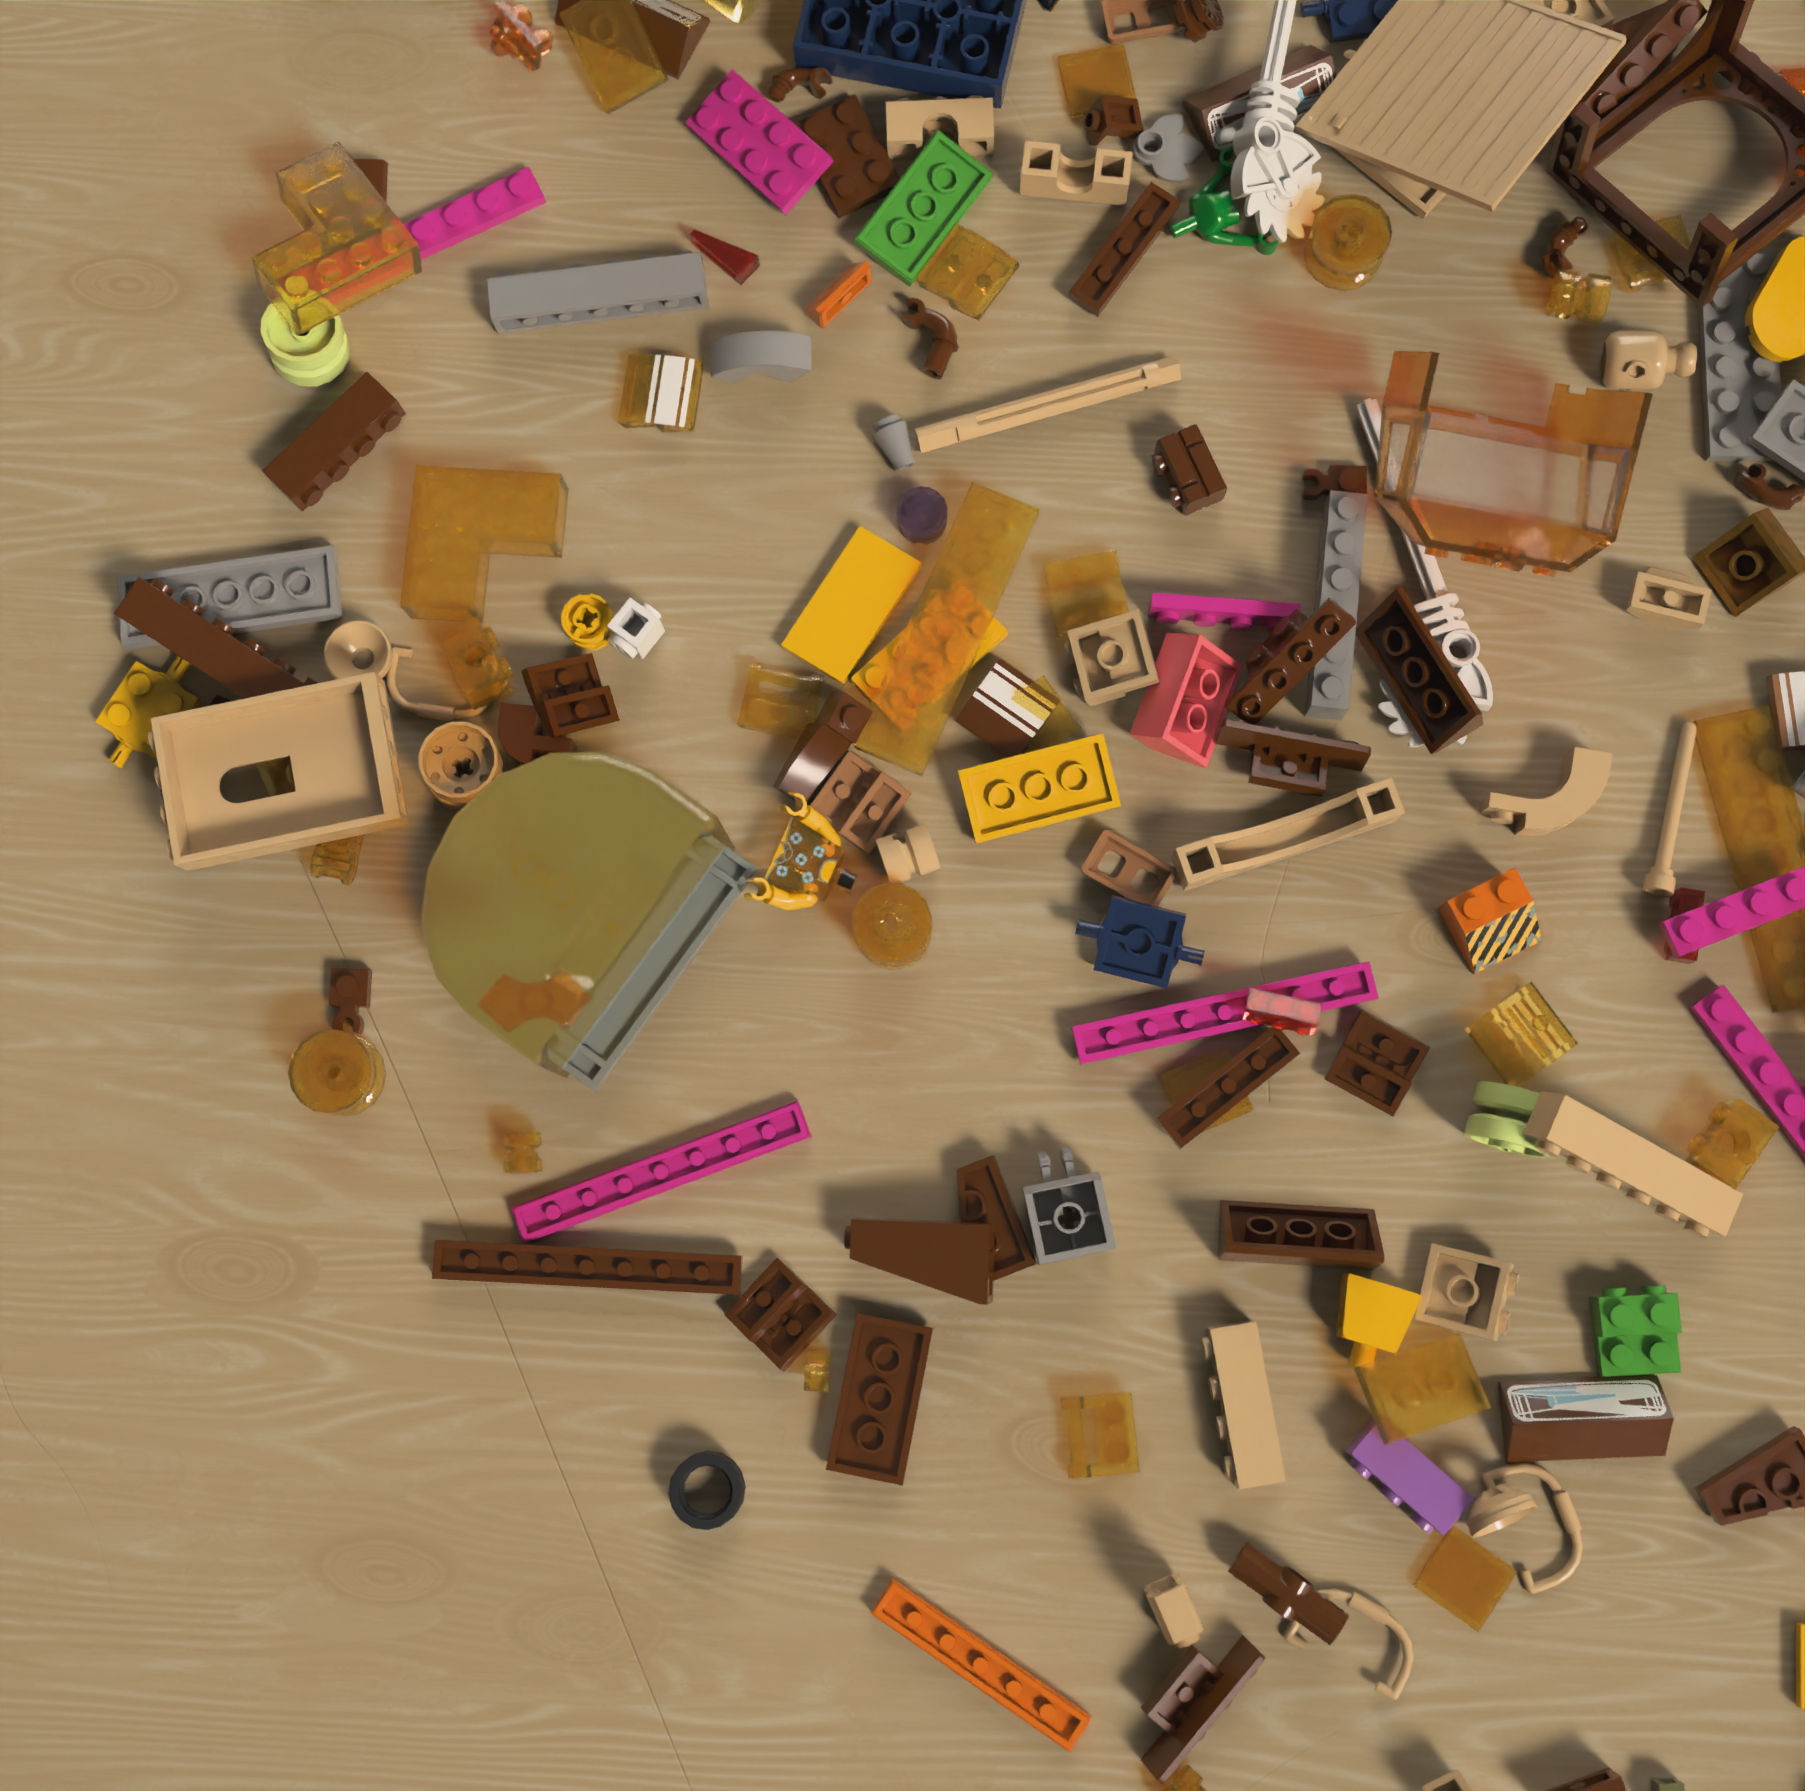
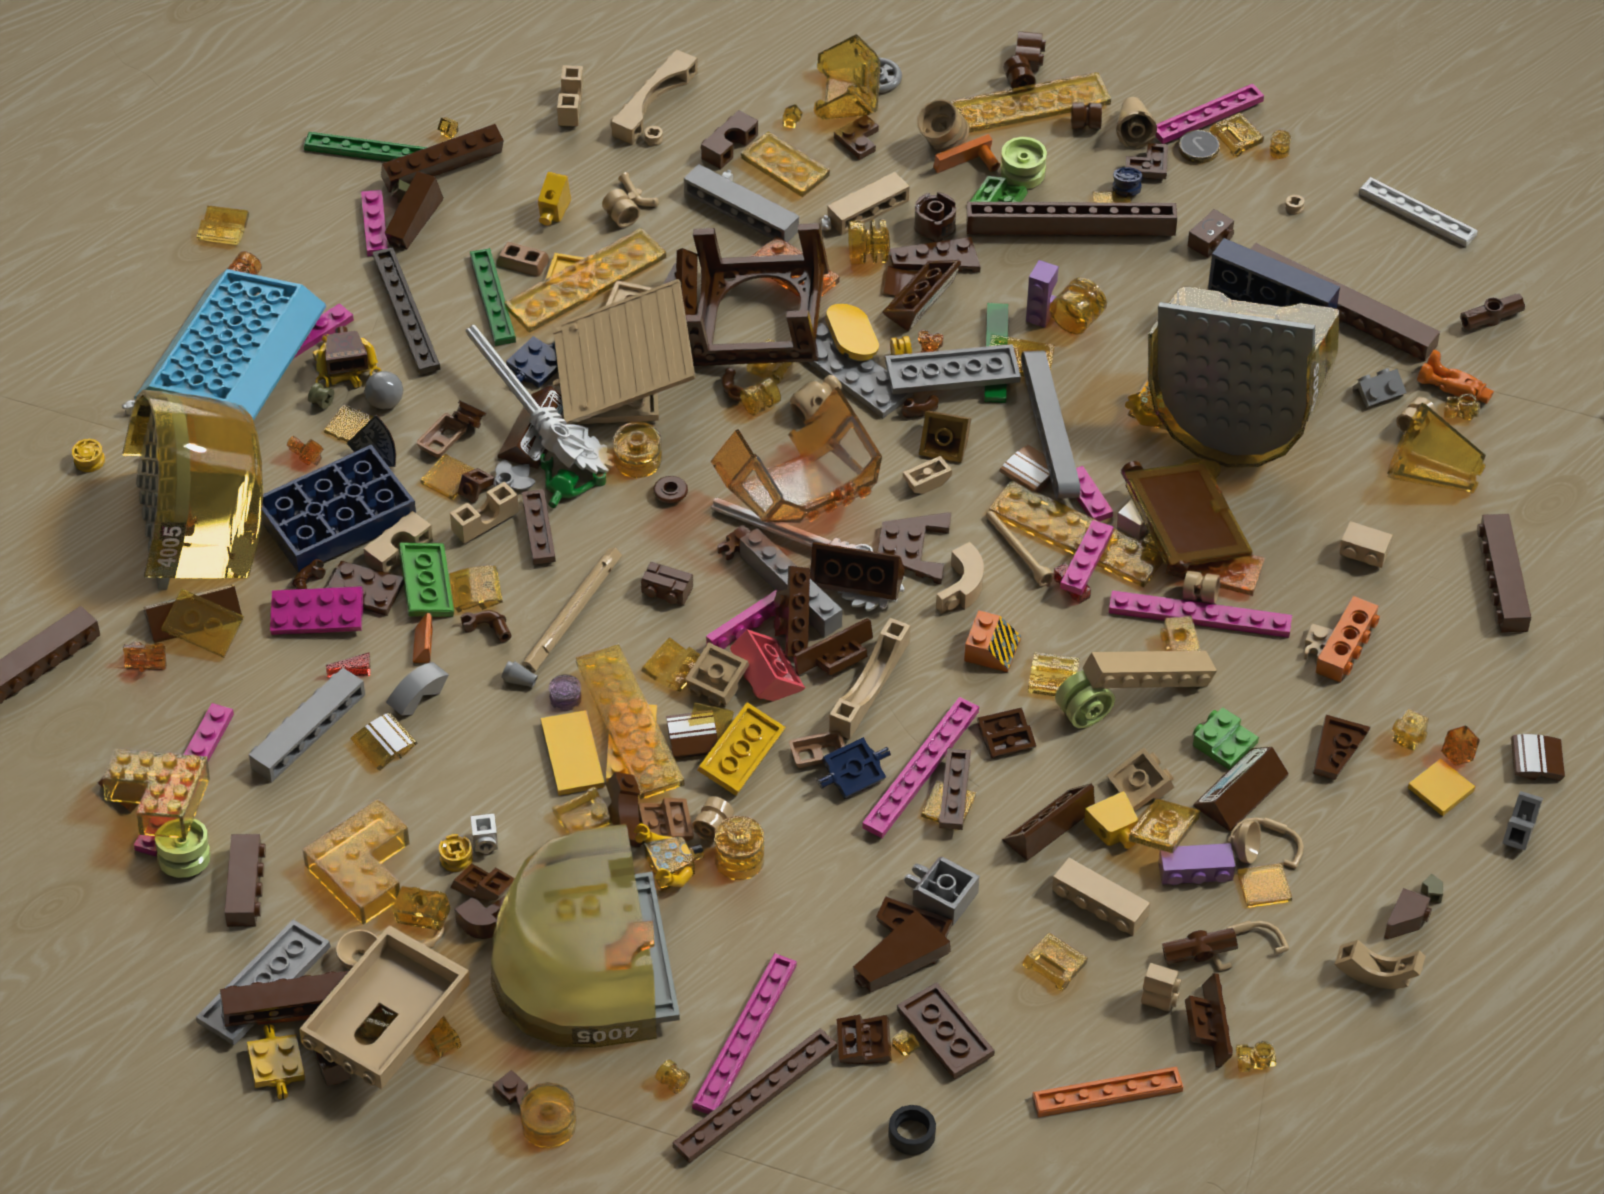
camera: 55 degrees left, 30 degrees down
(457, 748) = (467, 943): tan wheel -> none
(1281, 1011) = (944, 739): clear red piece -> none
(1338, 320) = (670, 482): none -> reddish brown piece
(1537, 671) = (906, 539): none -> wing

